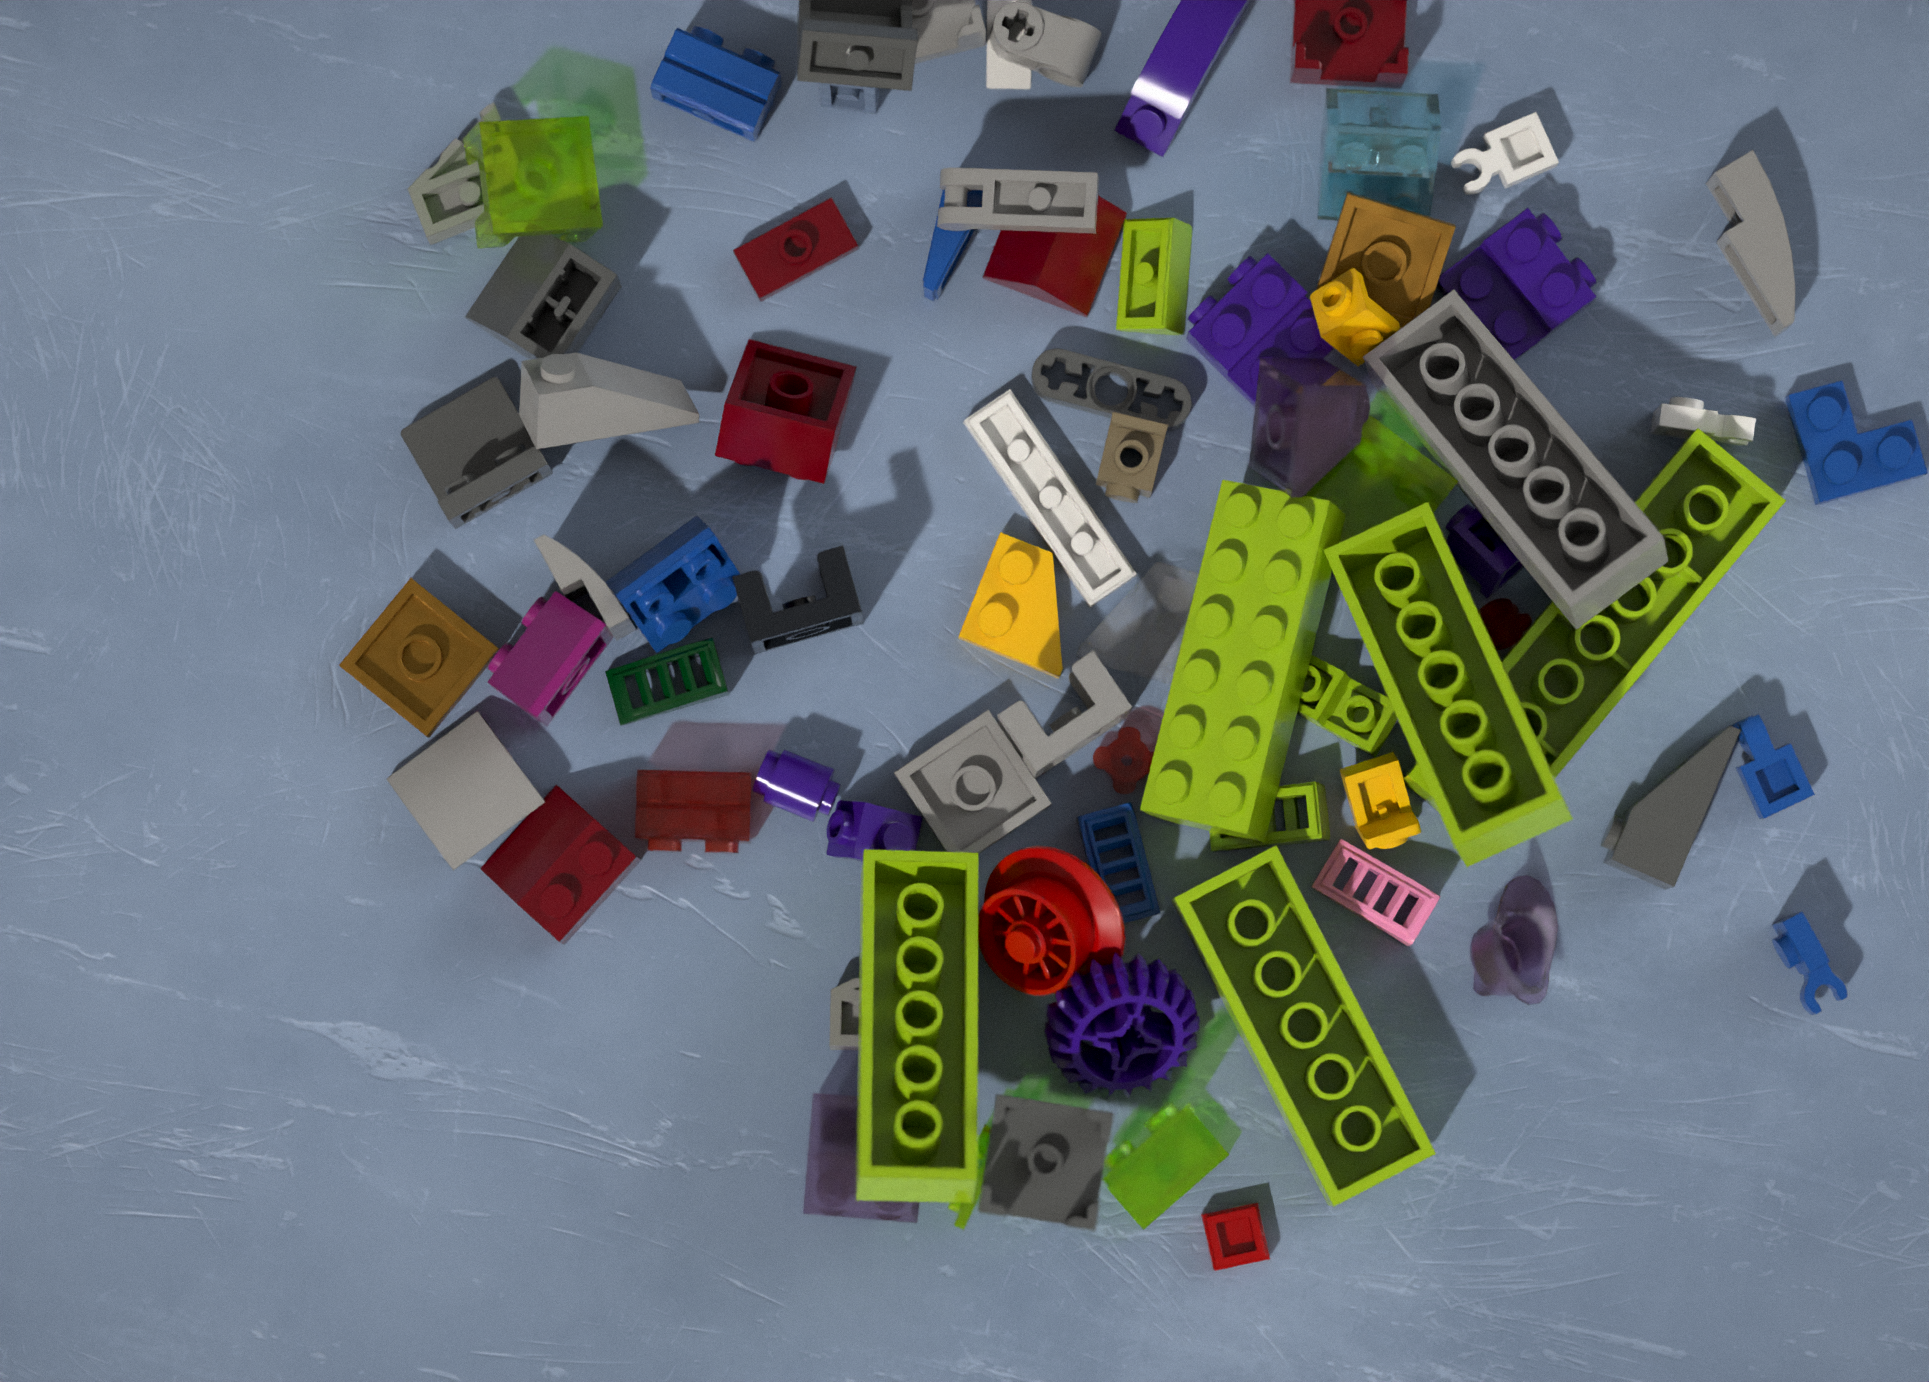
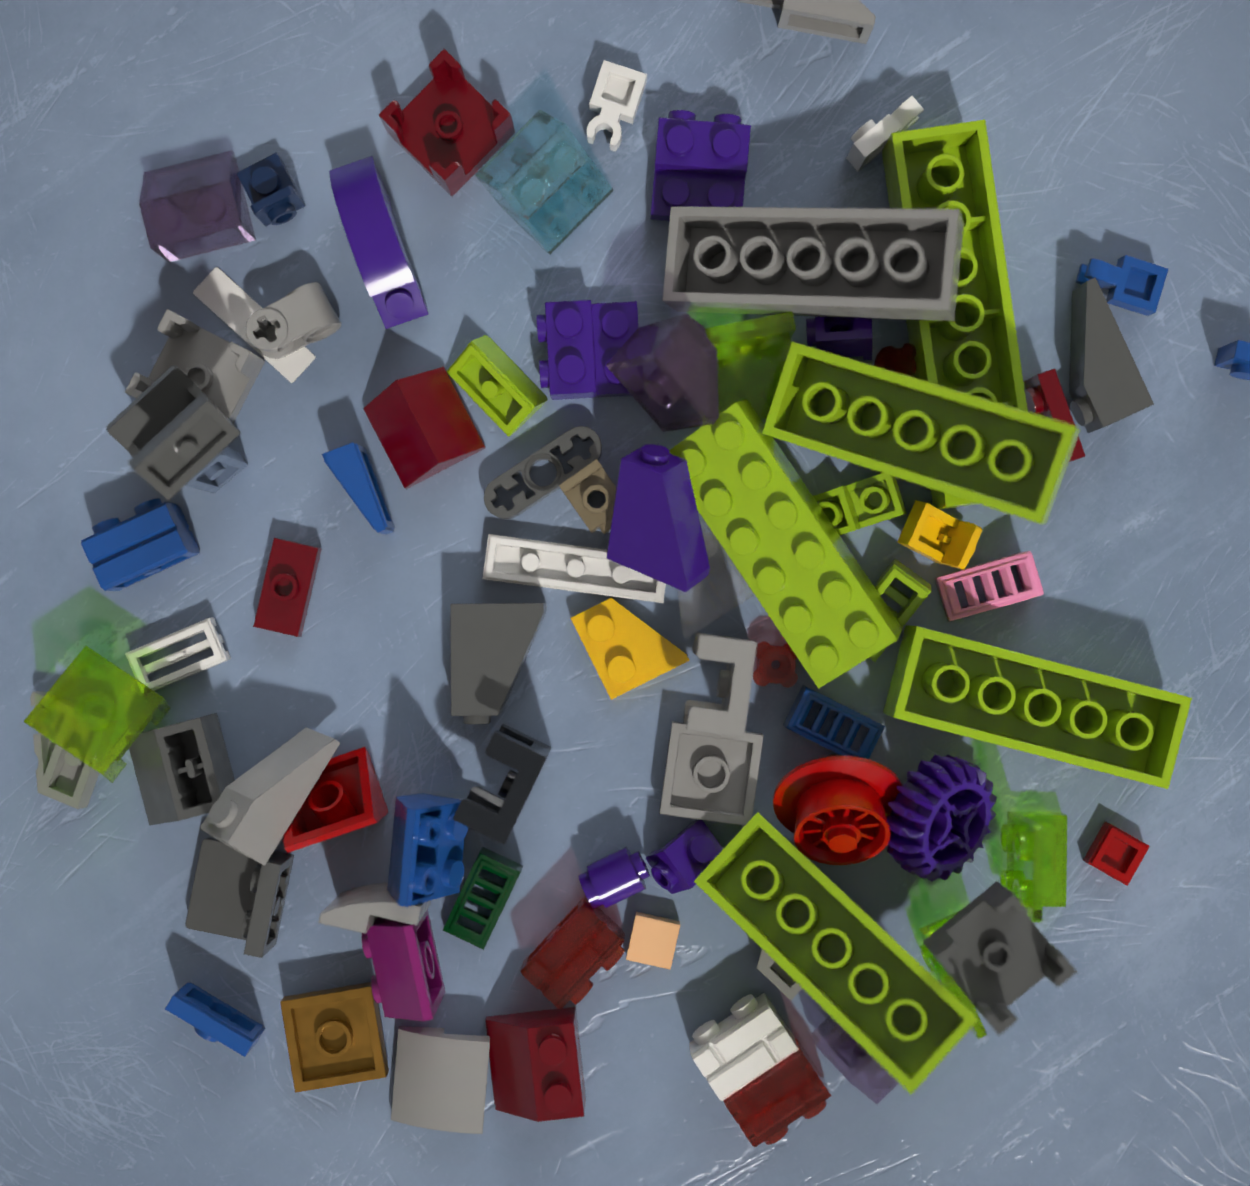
camera: 45 degrees left, 5 degrees up
(338, 533) = (215, 1019): none -> blue plate
(642, 468) = (340, 802): none -> red slope
(684, 226) = (213, 641): none -> white tile
(729, 1112) = (779, 1098): none -> clear red brick
(746, 1039) = (741, 1045): none -> white brick
(768, 874) = (653, 940): none -> light nougat tile
(785, 411) = (379, 683): dark red slope -> none
(901, 487) = (488, 654): none -> dark grey slope
(1020, 200) = (375, 425): light grey plate -> none
(1162, 527) = (658, 519): none -> dark purple slope
(1351, 318) = (630, 287): yellow bracket -> none
(1393, 251) = (613, 236): pearl gold plate -> none
(1518, 945) = (1098, 533): clear purple piece -> none
(1592, 790) = (1047, 399): none -> dark red plate
(1839, 458) = (976, 69): blue plate -> none

